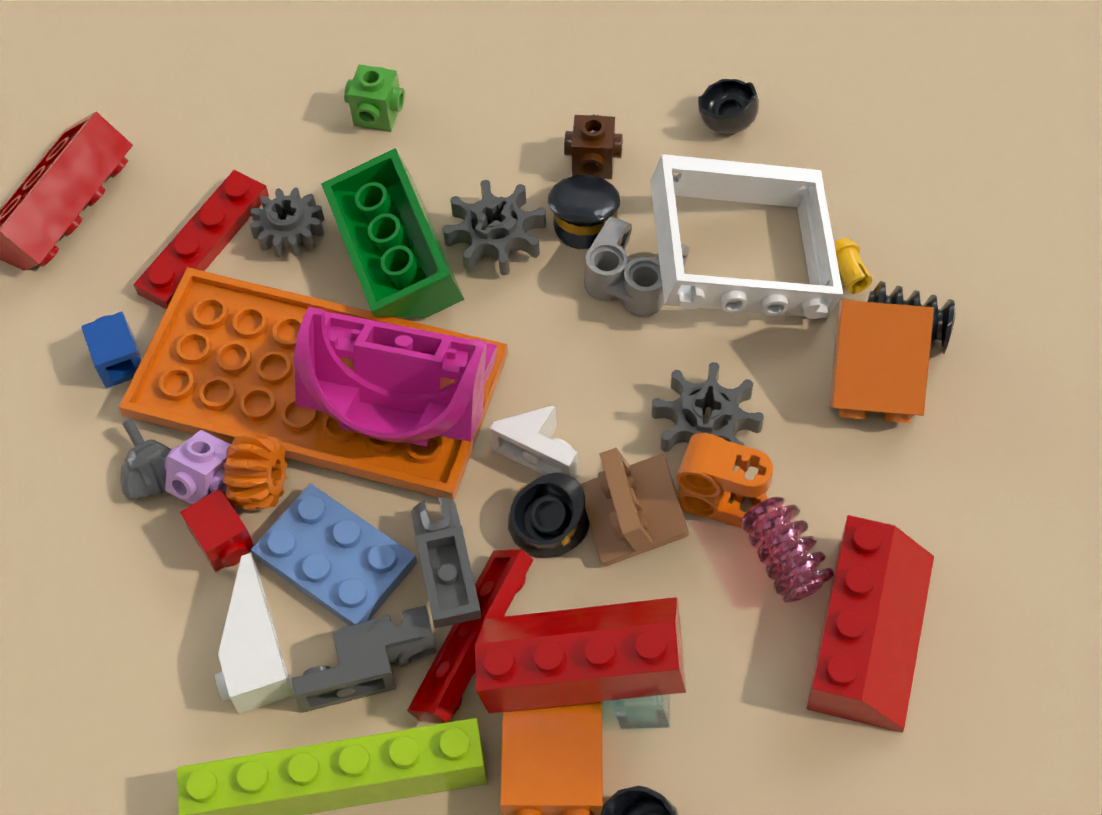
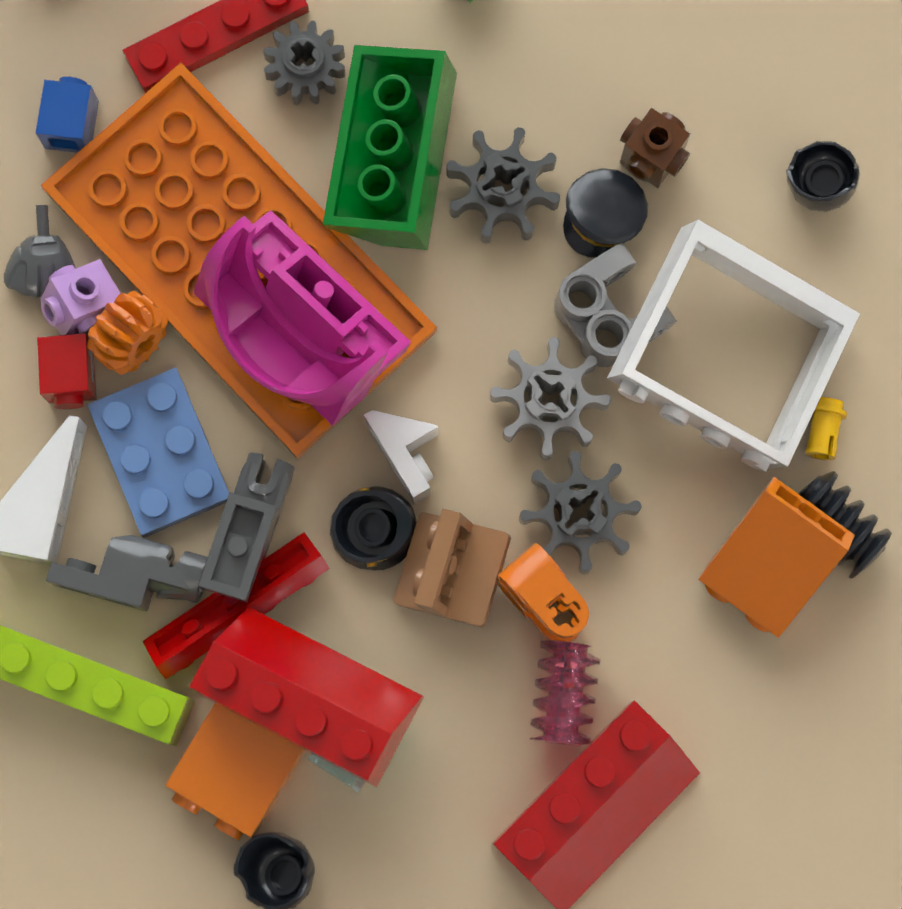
camera: 25 degrees right, 20 degrees up
(628, 349) = (550, 378): none -> light grey gear

